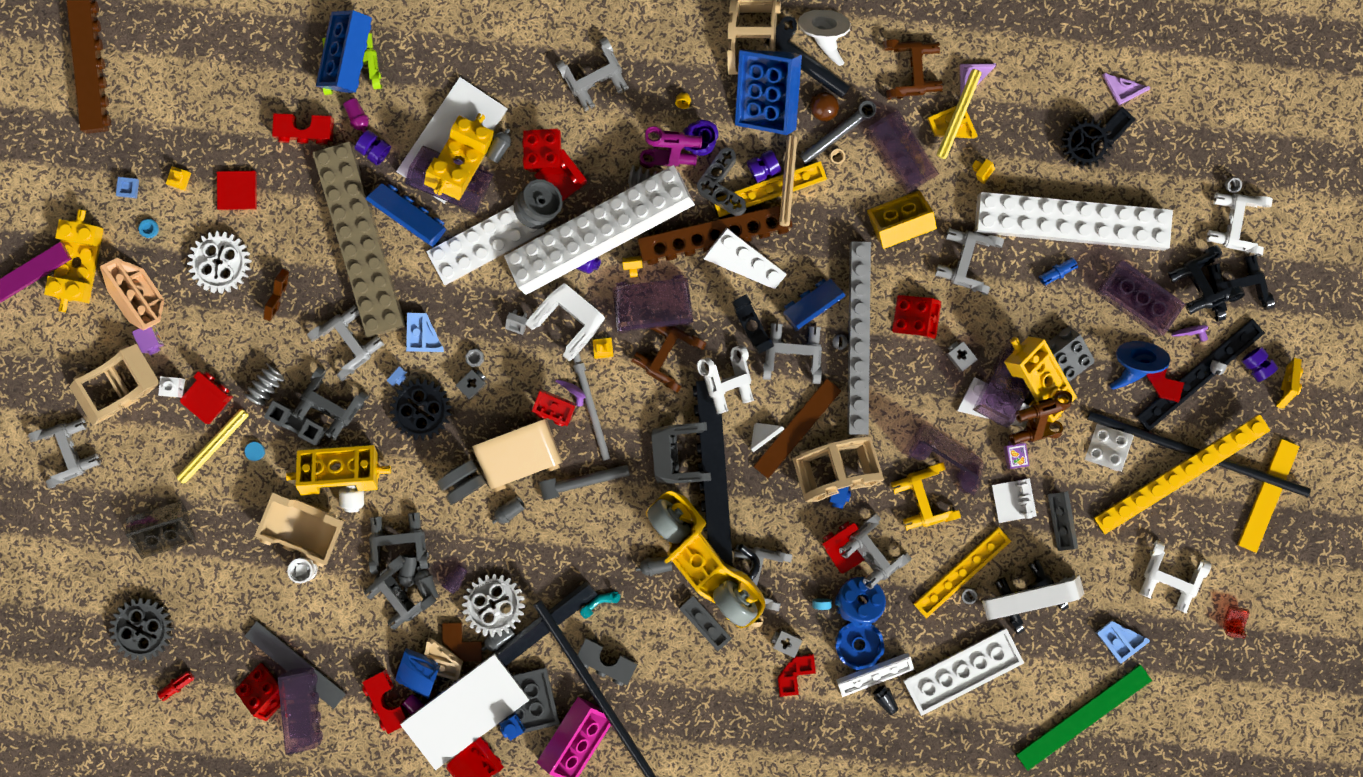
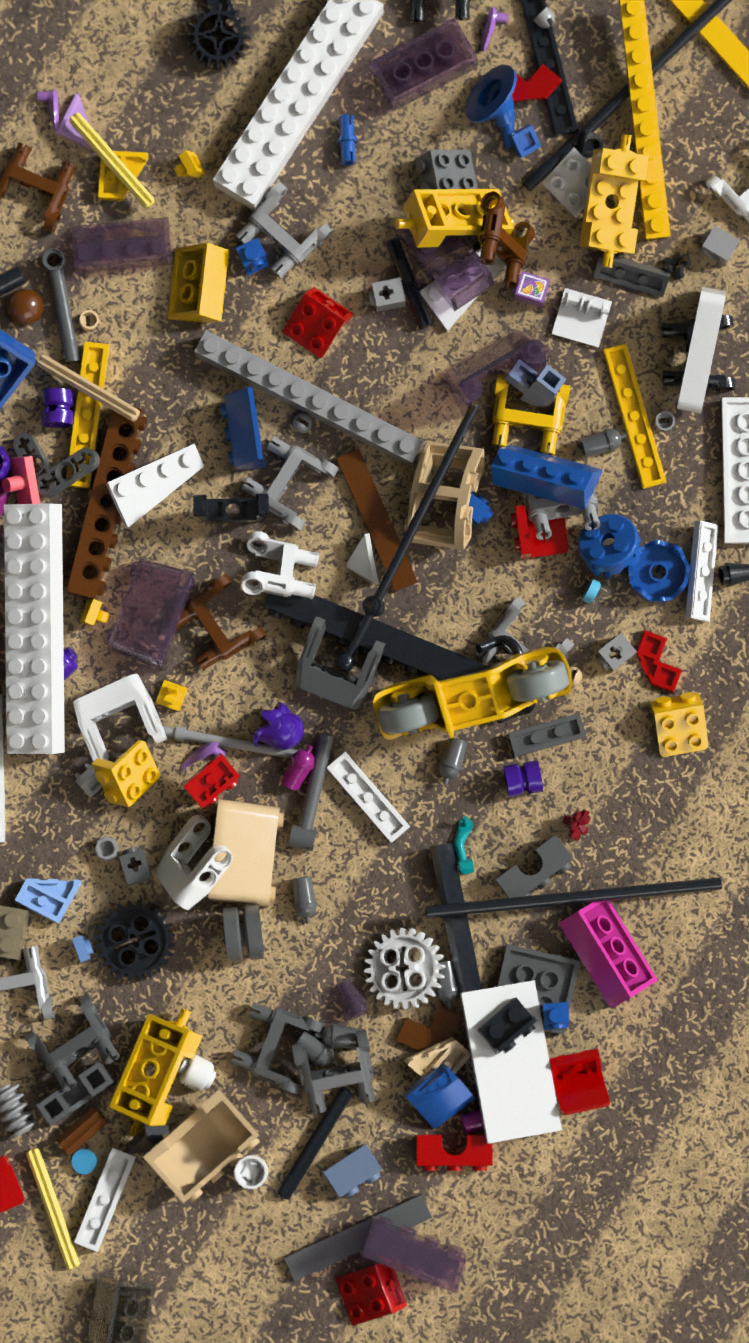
camera: 60 degrees left, 5 degrees down
(235, 479) = (105, 1199): none -> white plate
(274, 439) = (82, 1131): none -> reddish brown axle
(288, 488) = (147, 1139): none -> black tile
(337, 639) = (353, 1171): none -> sand blue brick
(344, 603) = (314, 1143): none -> black axle
(478, 416) = (175, 874): none -> white connector
(486, 698) = (507, 1026): none -> black bracket
(531, 348) = (128, 776): none -> yellow bracket
(595, 462) = (298, 768): none -> magenta piece
(600, 520) = (368, 797): none -> white plate
(616, 437) = (282, 730): none -> dark purple hair
(653, 674) = (577, 824): none -> dark red plant
(666, 622) = (523, 778): none -> dark purple wheel
(686, 458) = (374, 605): none -> black bar
(699, 169) = (23, 480): none -> coral tile
(760, 712) = (680, 724): none -> yellow bracket
(887, 532) = (545, 476): none -> blue slope
(932, 559) = (602, 442): none -> dark grey piece
(940, 247) = (252, 256): none -> blue brick
(947, 494) = (536, 388): none -> sand blue brick
(977, 366) = (409, 283): none -> black axle
(983, 48) = (52, 98): none -> medium lavender bar
(1086, 548) = (676, 265): none -> black plant
(1115, 572) = (718, 245): none -> light grey brick
(1121, 397) = (525, 140): none -> blue plate
(1128, 475) = (617, 175): none -> yellow brick
(1142, 444) = (587, 142): none -> black tile

